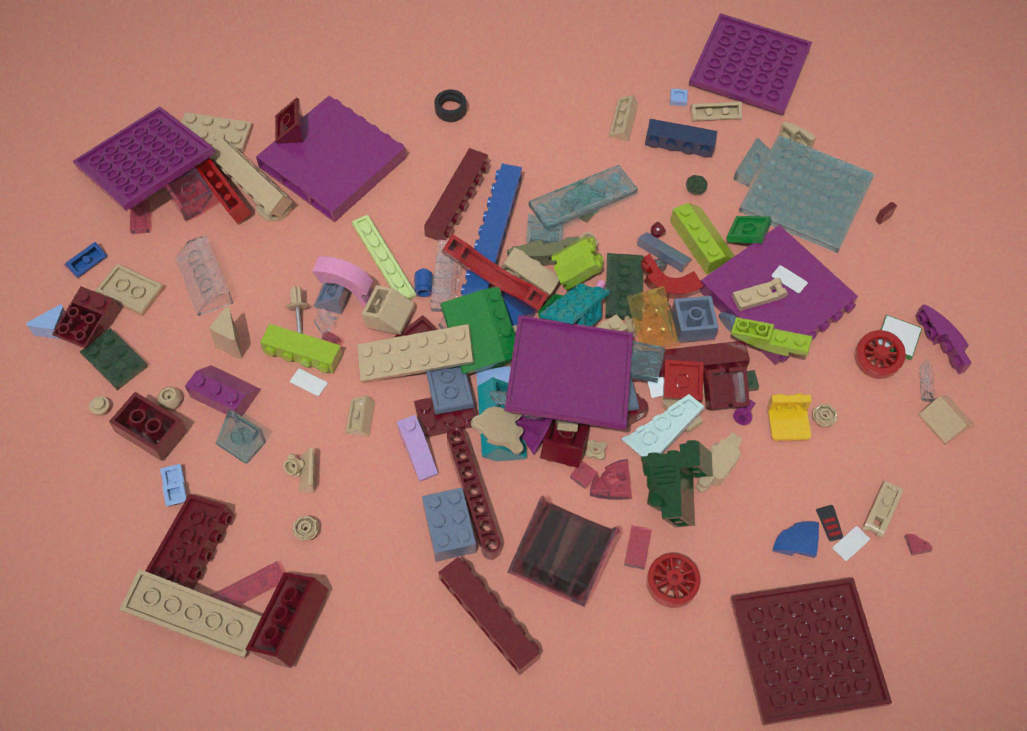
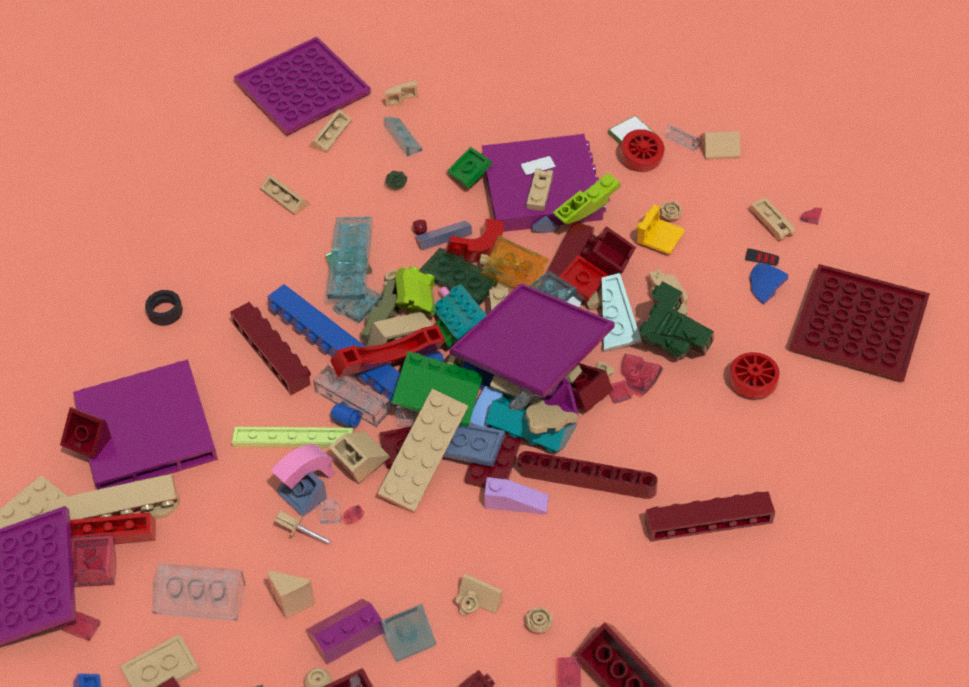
camera: 55 degrees left, 10 degrees down
(301, 348) = (345, 543): lime brick -> none
(308, 382) = (382, 556): white sticker -> none
(360, 416) = (449, 530): tan slope -> none
(449, 524) = (607, 505): sand blue brick -> none
(563, 552) = (690, 432): clear smoke windscreen -> none
(637, 547) = (708, 387): clear pink tile -> none
(678, 97) = (294, 148): light blue tile -> none
(681, 138) = (340, 166): dark blue brick -> none
(695, 318) = (532, 236): sand blue brick -> none
(700, 237) = (451, 204): lime slope -> none
(743, 414) = (637, 260): magenta plate -> none
(807, 193) = (458, 116): clear light blue plate -> none
(851, 543) = (786, 254): white sticker -> none
(886, 212) = (517, 80): dark red tile -> none
(942, 331) = (653, 104): magenta slope -> none

